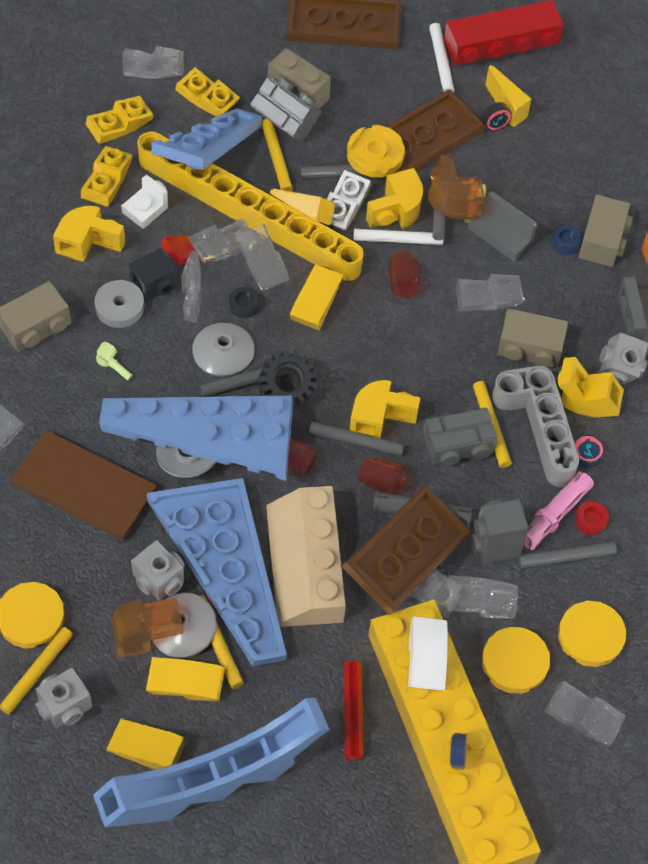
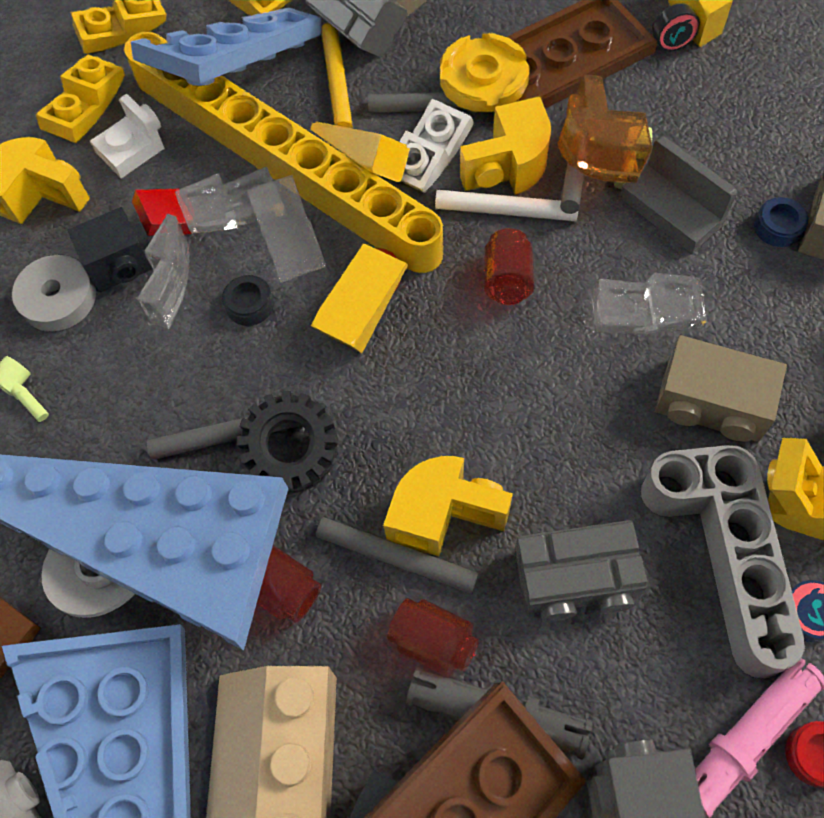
camera: 15 degrees right, 5 degrees up
(223, 360) = (205, 395): light grey dish -> none
(485, 402) = (630, 509): yellow bar -> none

